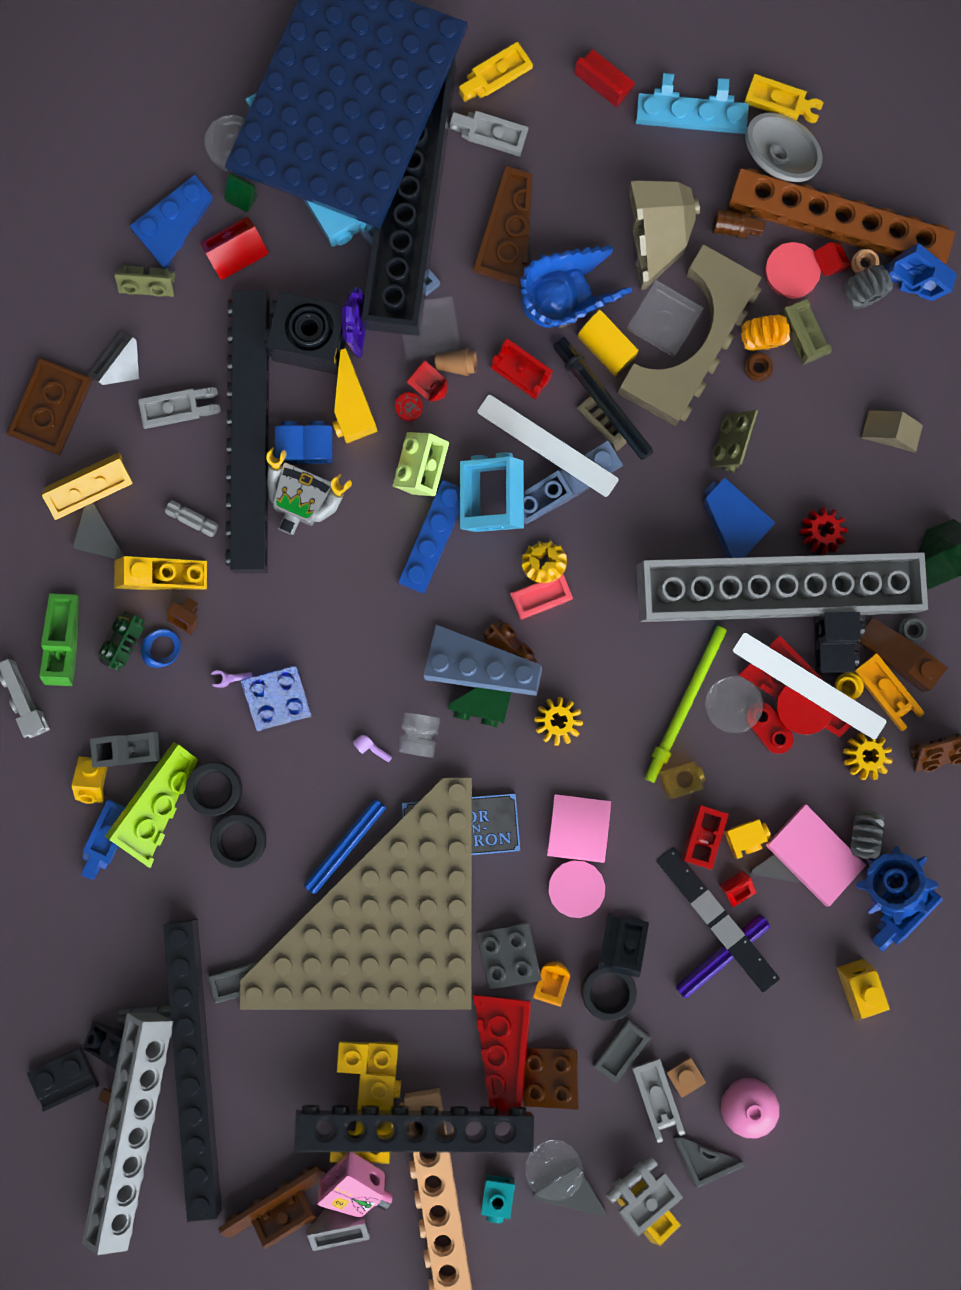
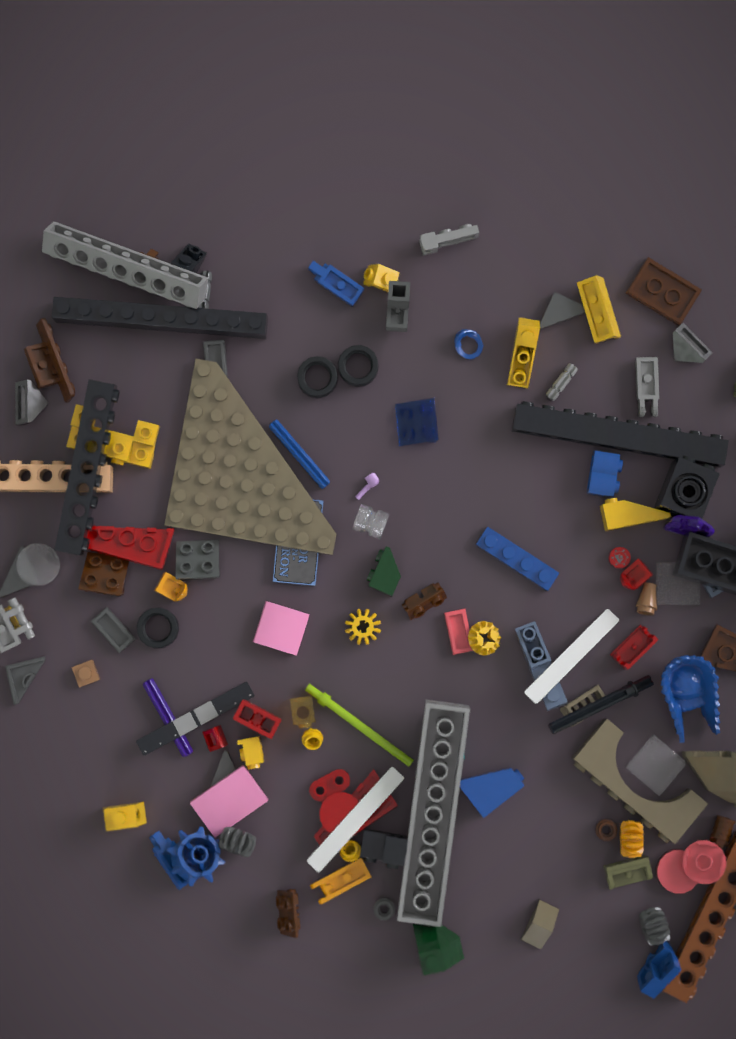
camera: 100 degrees right, 0 degrees up
(60, 640) = (487, 272): bright green slope -> none
(62, 1079) = (170, 225): black plate -> none
(110, 650) = (472, 307): dark green hinge -> none
(146, 816) = (346, 313): lime wing -> none
(184, 615) = (489, 365): reddish brown tile -> none
(229, 677) = (438, 388): lavender hand -> none
(301, 494) = (565, 465): torso -> none
(353, 1187) = (54, 418): bright pink torso -> none
(421, 464) = (573, 558): yellowish green brick -> none
(470, 493) = (546, 592): medium azure window -> none
(472, 663) = (417, 569): sand blue wing -> none
(496, 1187) = (33, 523): teal brick -> none
(576, 889) = (237, 618): bright pink tile -> none
(608, 343) = (643, 716): yellow brick -> none
(623, 945) = (189, 644): black plate -> none
(657, 1097) = (75, 649): light grey hinge -> none
(715, 761) = (312, 739): none -> yellow plate
(733, 440) = (558, 801): olive hinge -> none
(734, 704) = (352, 761): clear tile -> none
(749, 1108) = (54, 716): bright pink cylinder -> none
(777, 238) = (704, 862): none -> coral tile
(828, 541) = (479, 853): red gear -> none
(832, 259) = (682, 903): red slope -> none
(864, 254) = (681, 929): light nougat plate -> none
(867, 767) = (287, 856): yellow gear -> none
(903, 655) = (367, 895): reddish brown slope -> none

